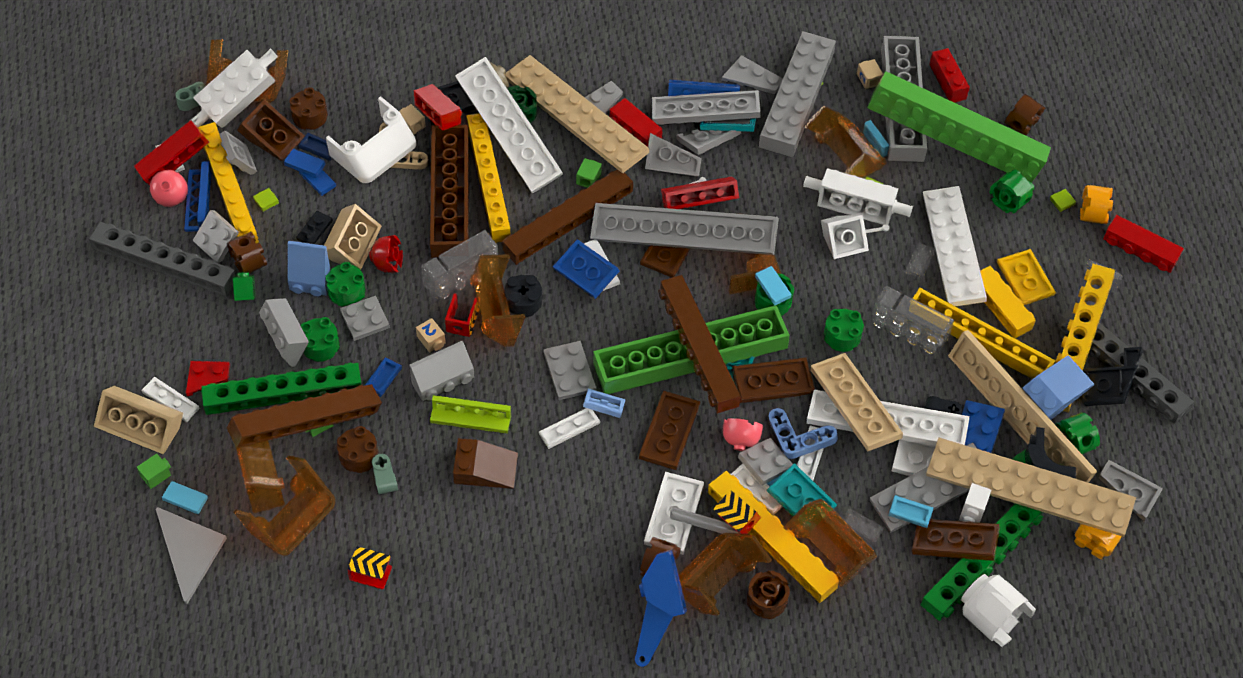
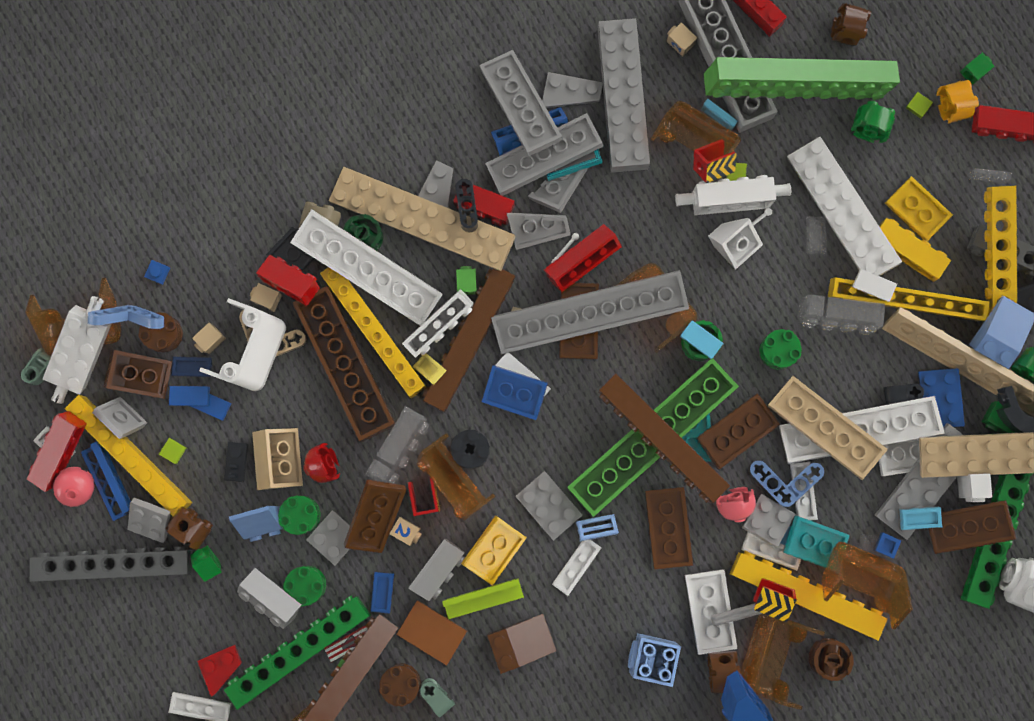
camera: 20 degrees left, 25 degrees up
(291, 78) = (126, 313): none -> medium blue beam
(331, 70) = (157, 272): none -> blue plate
(345, 130) = (208, 338): none -> tan brick
(409, 426) = (432, 632): none -> dark orange tile
(410, 304) = (374, 516): none -> reddish brown plate
(501, 380) = (493, 550): none -> yellow tile
(521, 220) = (429, 368): none -> light yellow tile
(547, 188) = (434, 326): none -> white brick
(600, 519) = (653, 659): none -> light blue brick
(619, 117) = (463, 212): none -> black beam
(705, 63) = (520, 103): none -> light grey plate
(851, 157) = (713, 161): none -> piece
(868, 522) = (887, 545): none -> blue plate
(952, 304) = (874, 285): none -> white tile
(1128, 191) = (977, 68): none -> green brick

